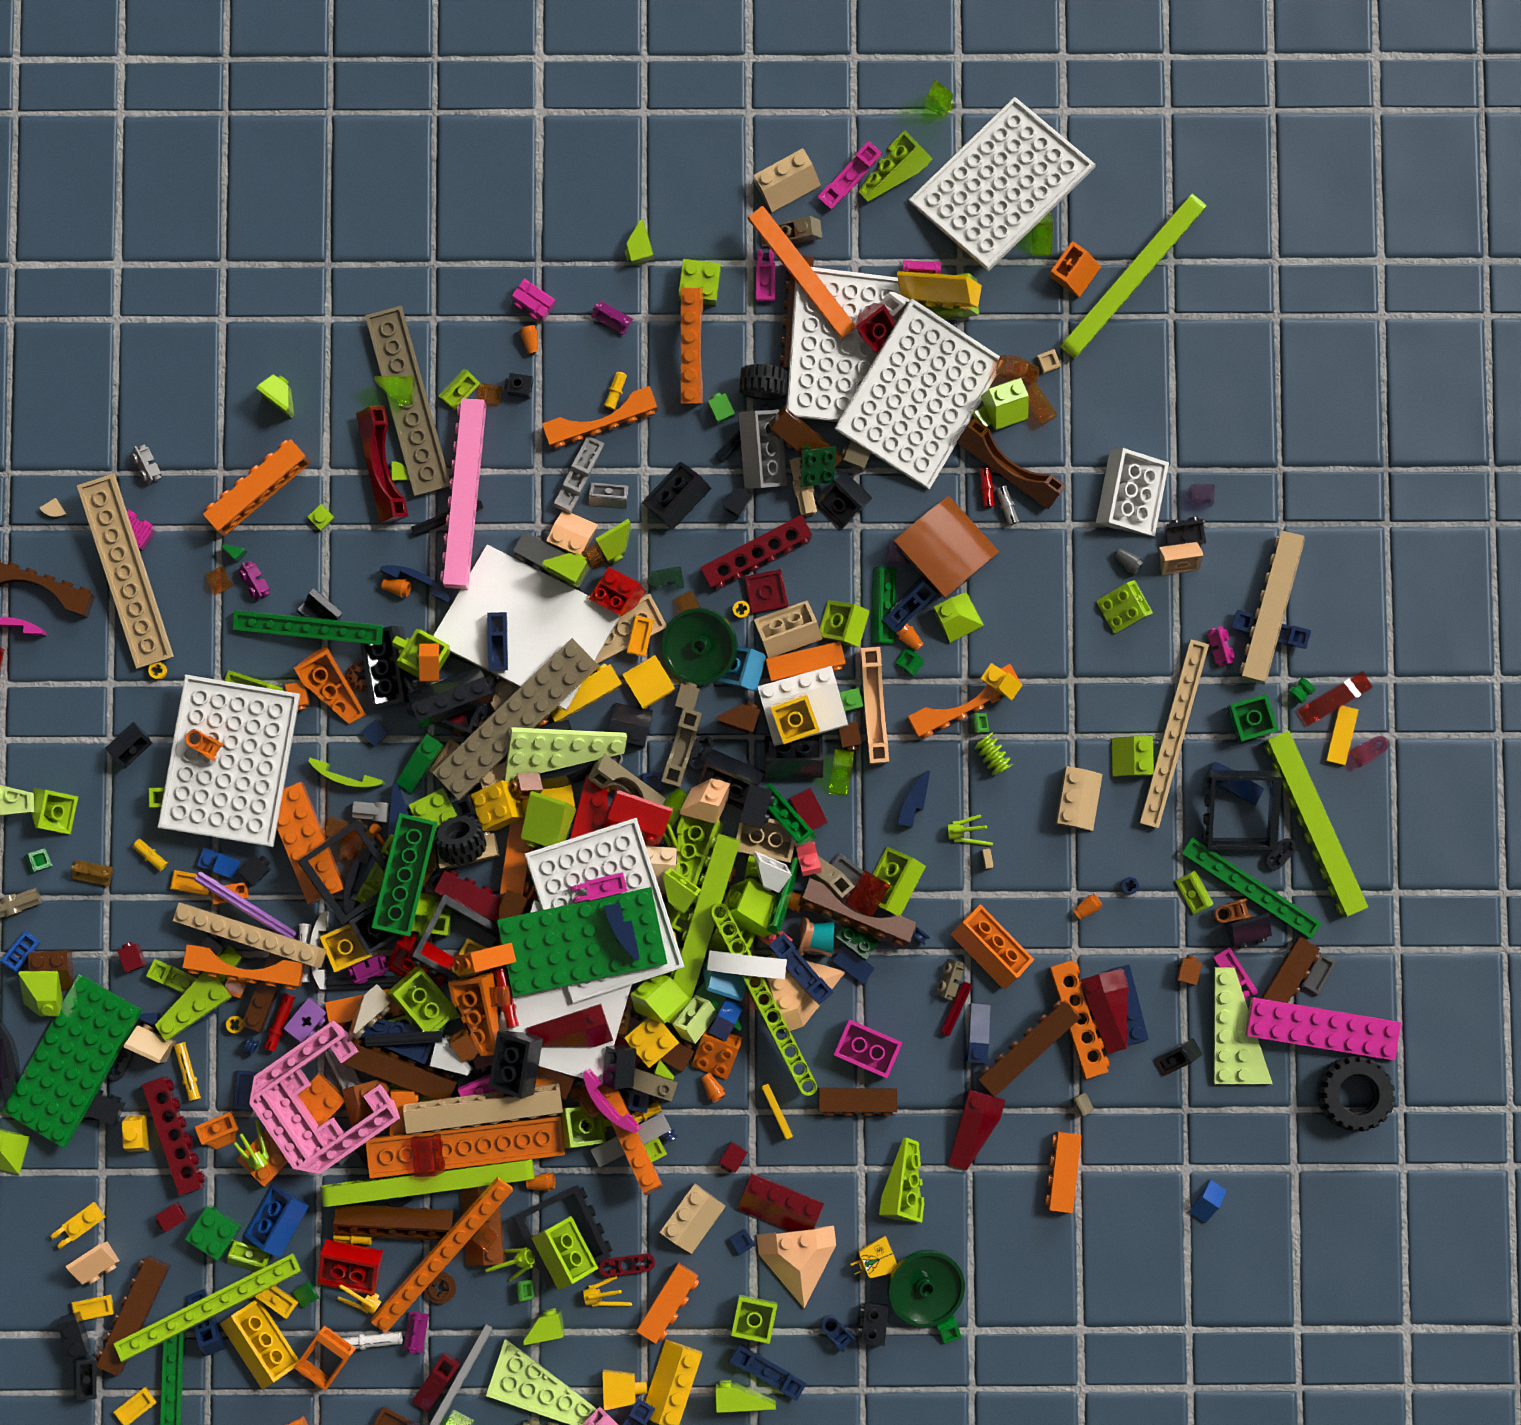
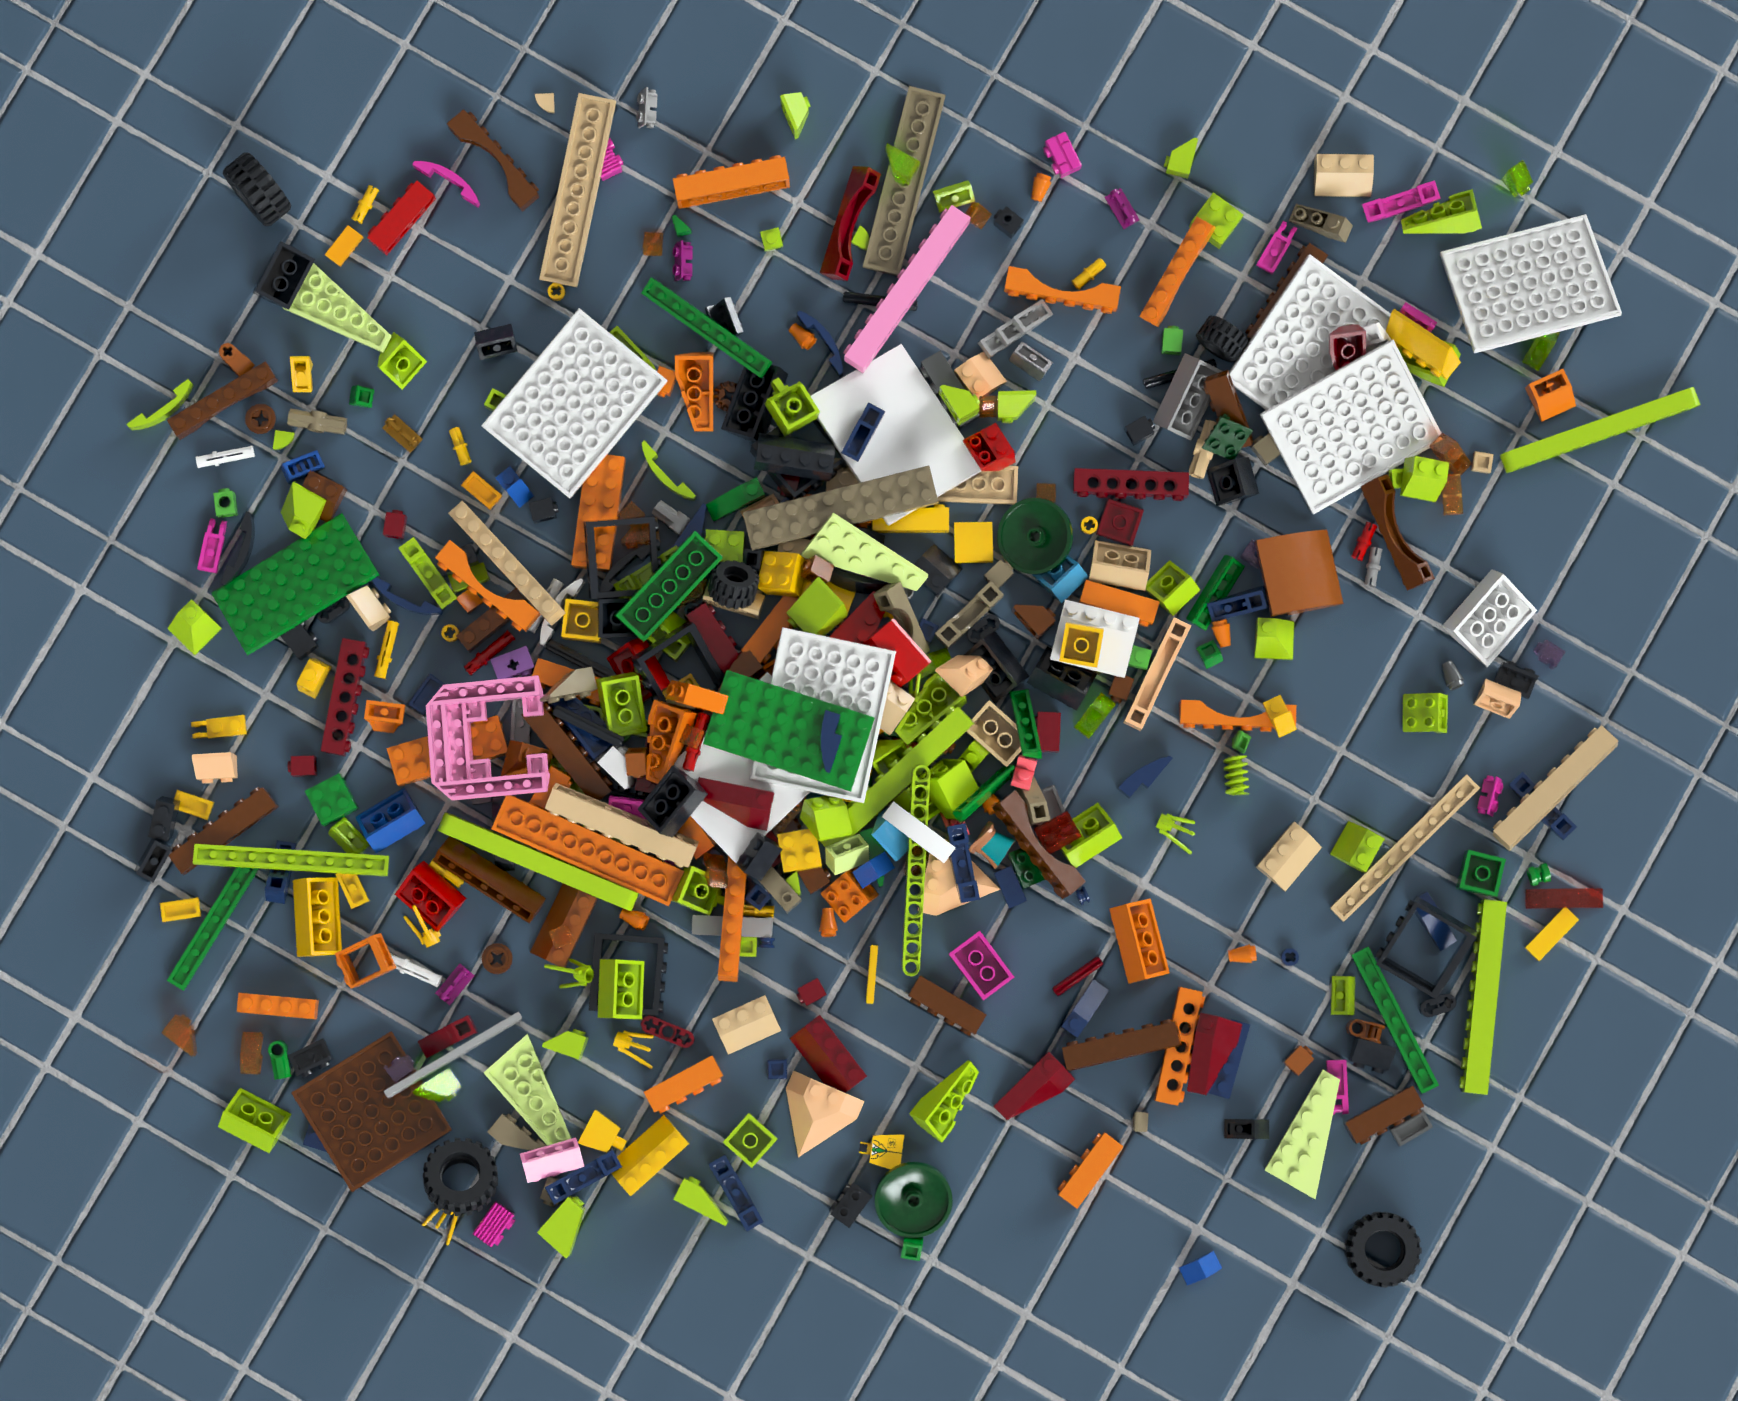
camera: 30 degrees right, 0 degrees up
(195, 1003) = (425, 595): lime wing -> none
(205, 744) = (562, 377): orange piece -> none
(238, 888) = (509, 517): orange leg -> none
(244, 905) = (516, 534): medium lavender axle -> none
(250, 1046) = (452, 659): dark blue bush -> none
(255, 1160) = (404, 757): lime plant -> none
(306, 1294) = (379, 898): green slope -> none
(375, 733) = (712, 451): dark blue tile -> none
(375, 828) = (664, 534): orange hand -> none
(375, 968) = (597, 653): magenta hinge -> none
(427, 1155) = (551, 837): clear red bracket -> none
(429, 662) = (794, 416): orange slope -> none
(441, 1254) = (515, 930): orange plate -> none
(525, 1290) = (568, 1002): bright green slope -> none
(592, 1083) = (728, 857): dark pink slope -> none
(601, 887) = (831, 693): dark pink hinge -> none
(640, 636) = (988, 498): light orange tile -> none
(665, 577) = (1039, 459): clear green leg -> none
(676, 495) = (1090, 394): black slope -> none
(679, 890) = (897, 735): lime slope -> none
(756, 806) = (1004, 702): black brick -> none
(771, 872) = (985, 766): white slope -> none
(801, 272) = (1309, 262): orange tile -> none
(839, 1335) = (815, 1195): dark blue piece -> none
(951, 970) = (1093, 941): dark tan hinge -> none
(987, 858) = (1179, 862): tan tile -> none
(1323, 1028) = (1387, 1176): dark pink plate -> none
(1367, 752) = (1565, 960): clear pink piece -> none

